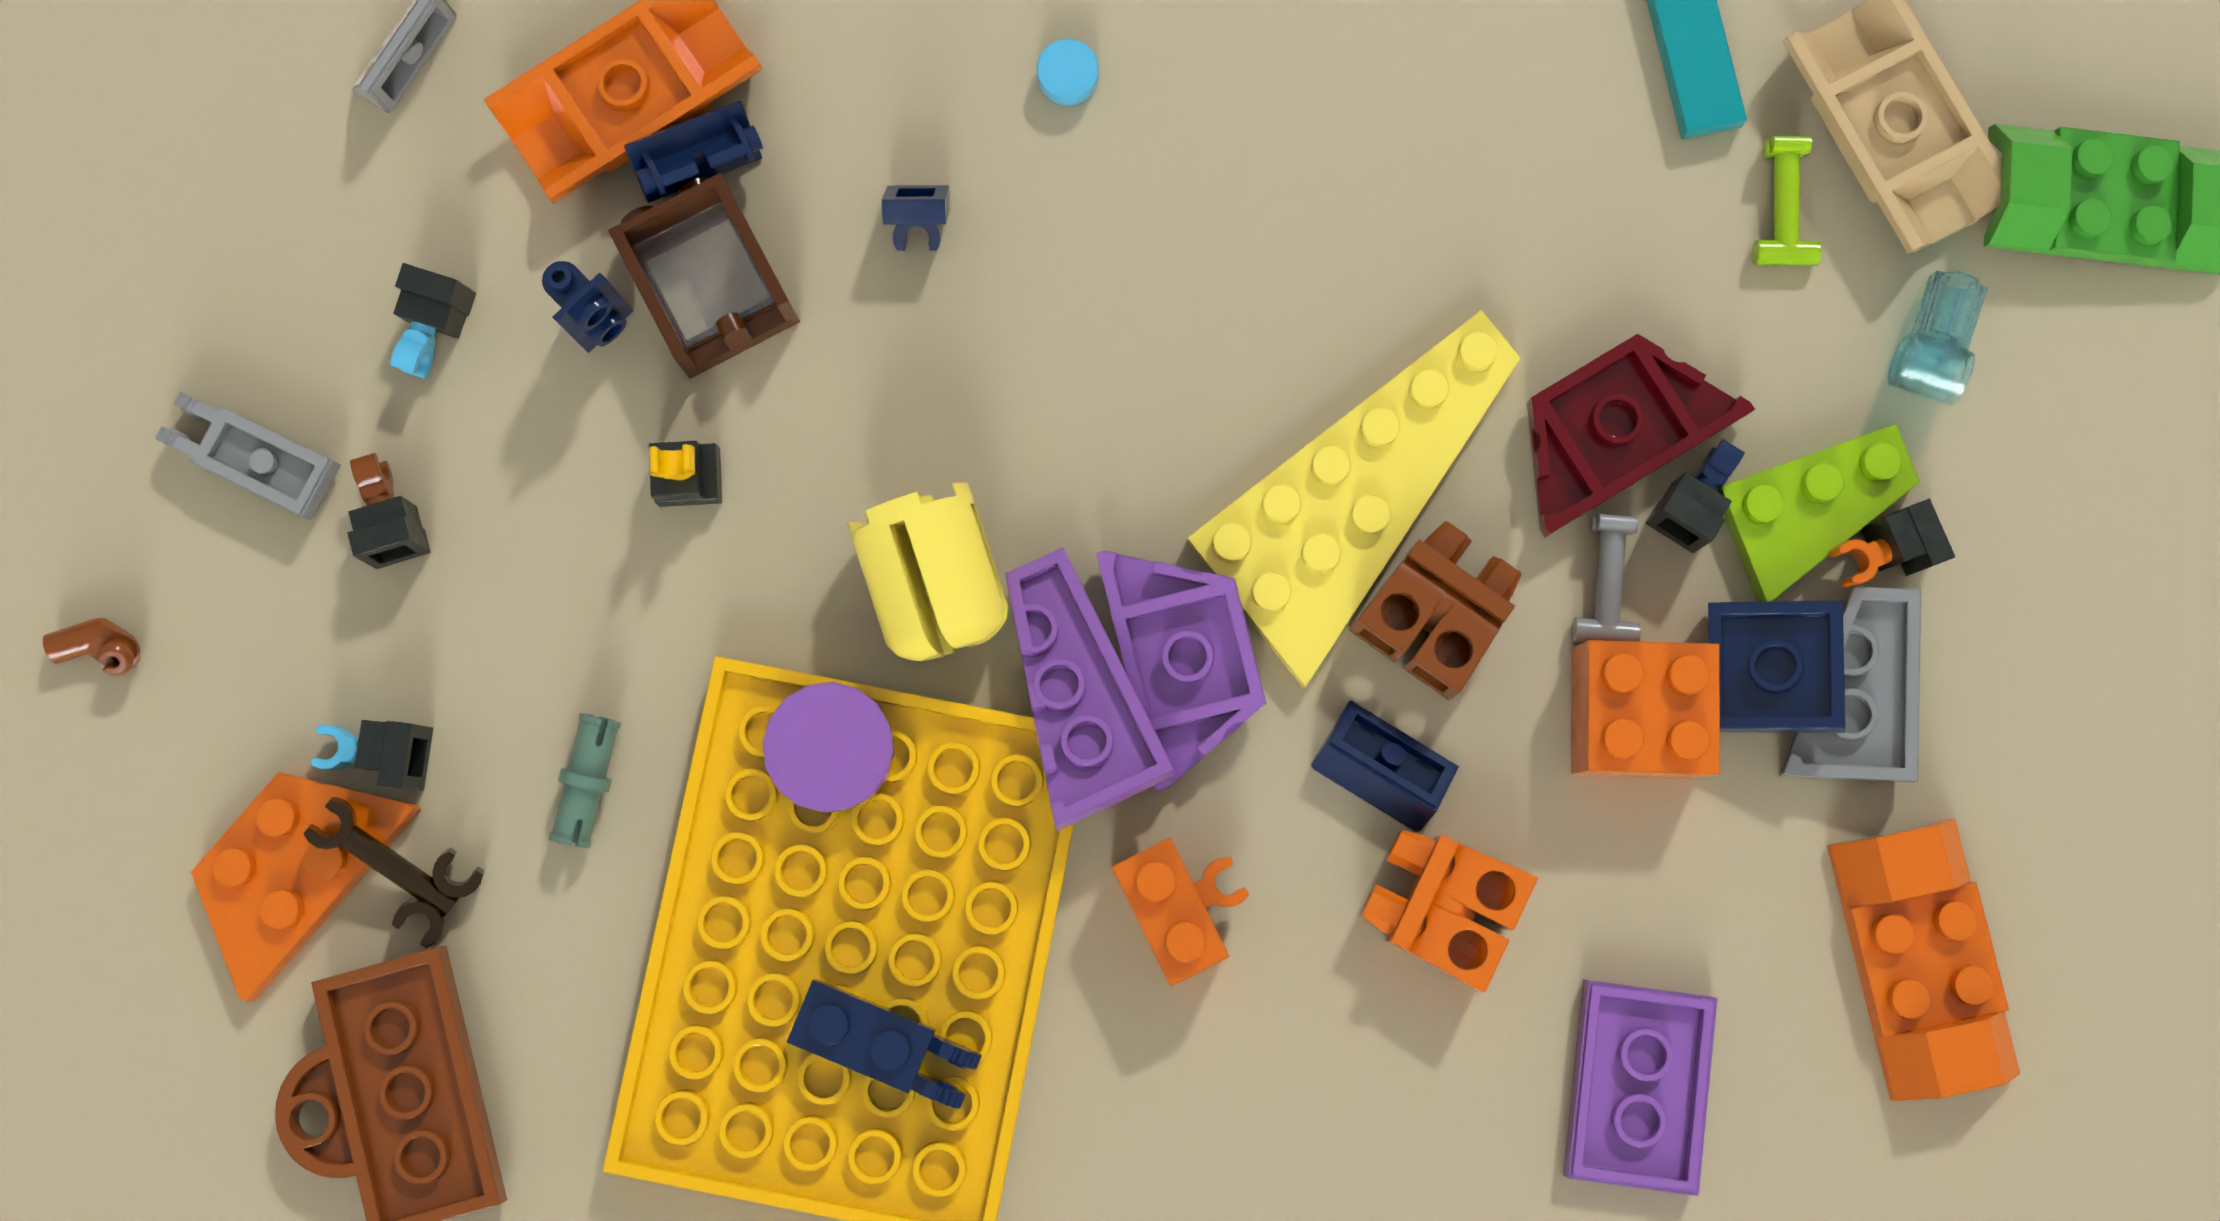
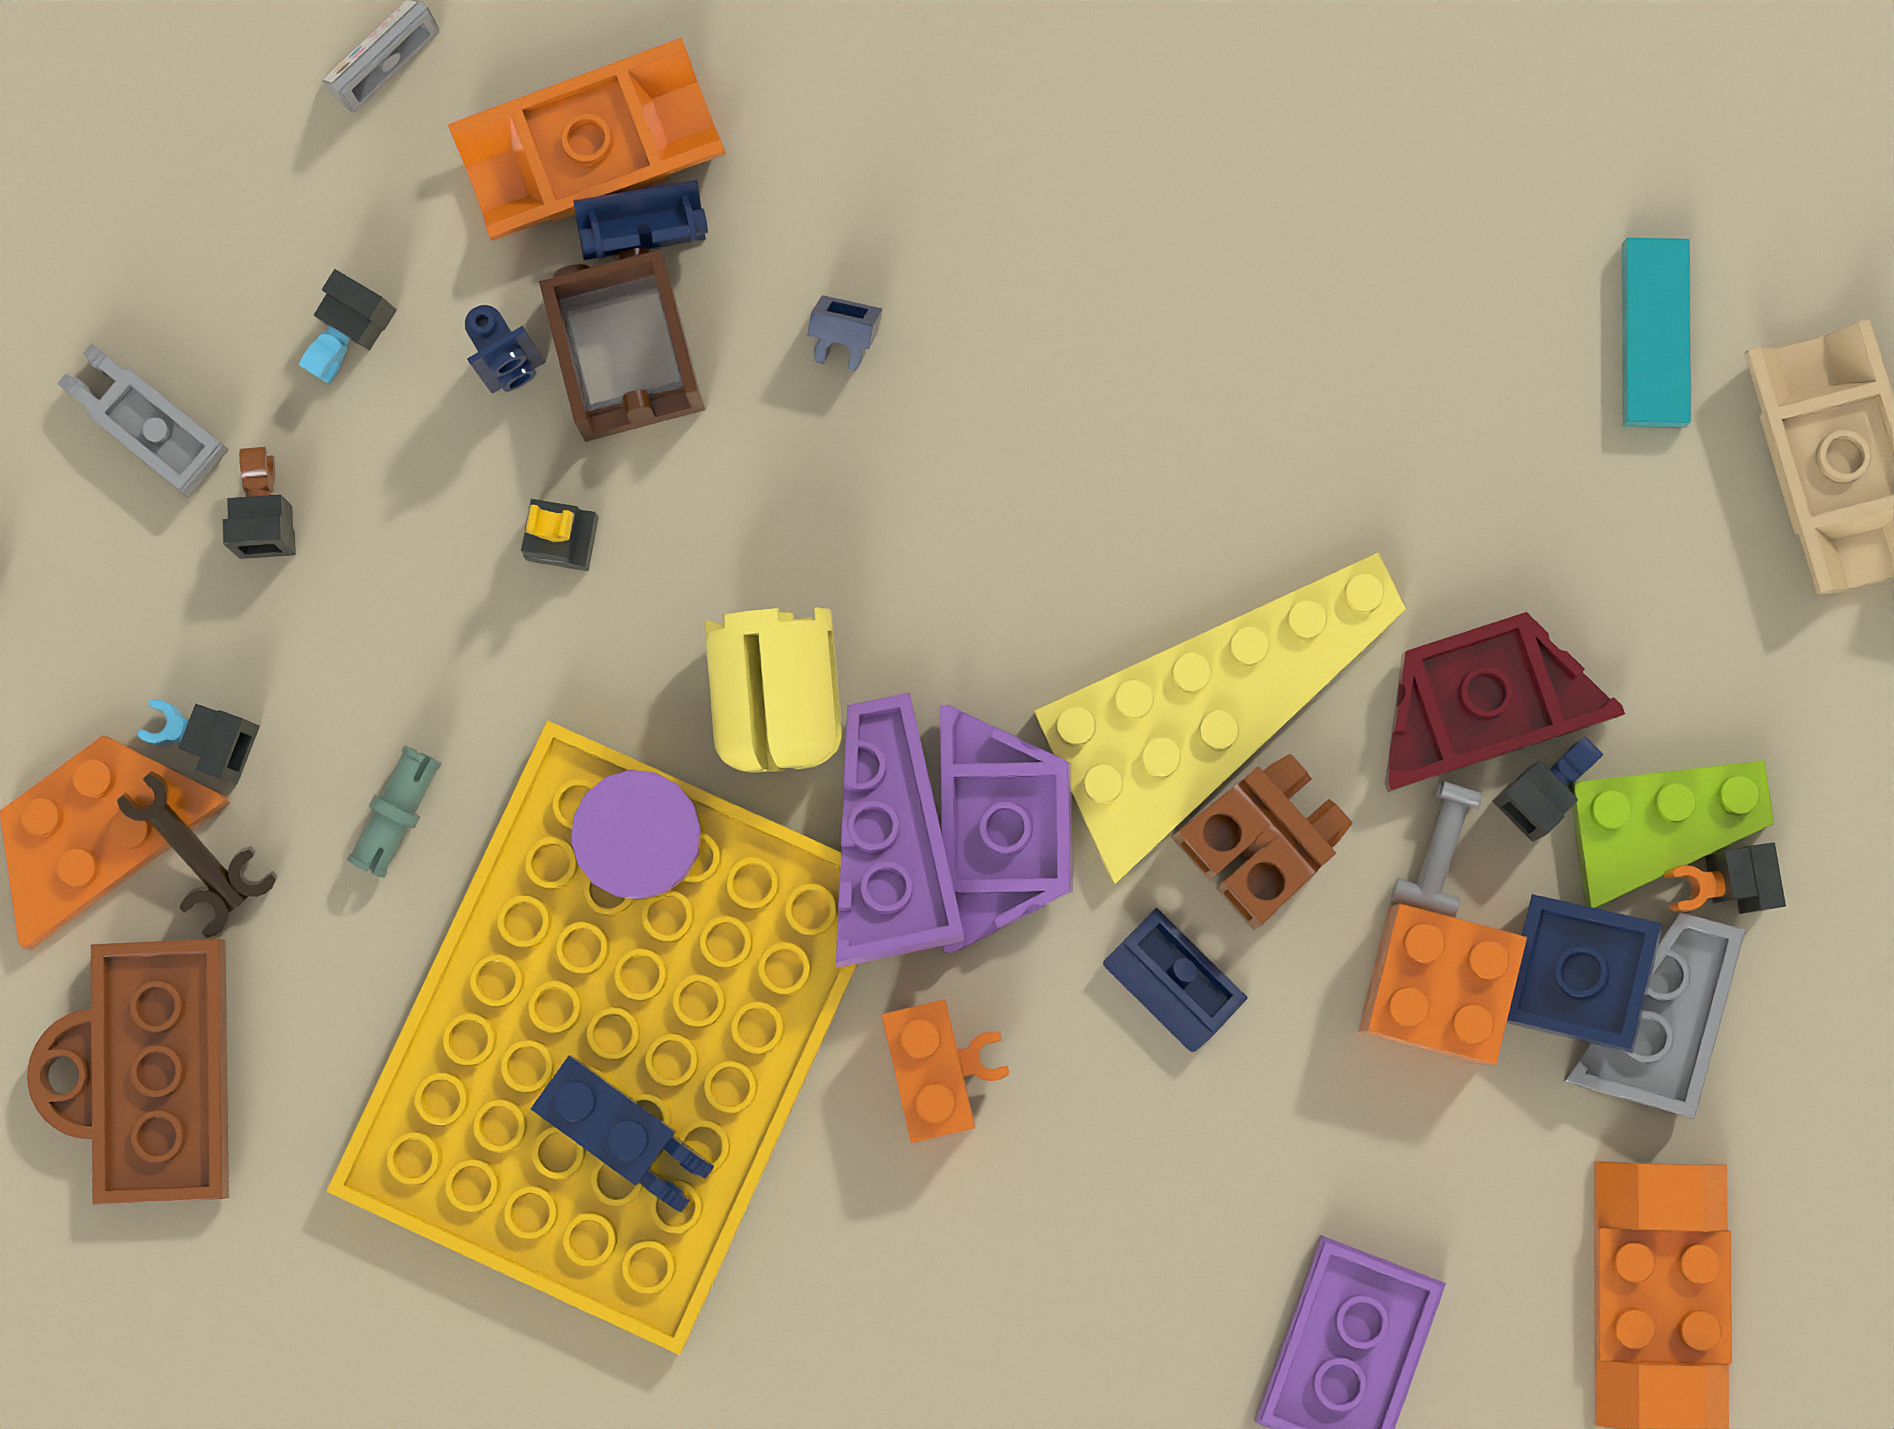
camera: 20 degrees right, 0 degrees up
(1067, 72) = (1025, 222): medium azure tile -> none
(1443, 901) = (1198, 1127): orange hips -> none
(1786, 246) = (1700, 557): lime piece -> none
(1935, 354) = (1821, 699): clear light blue piece -> none

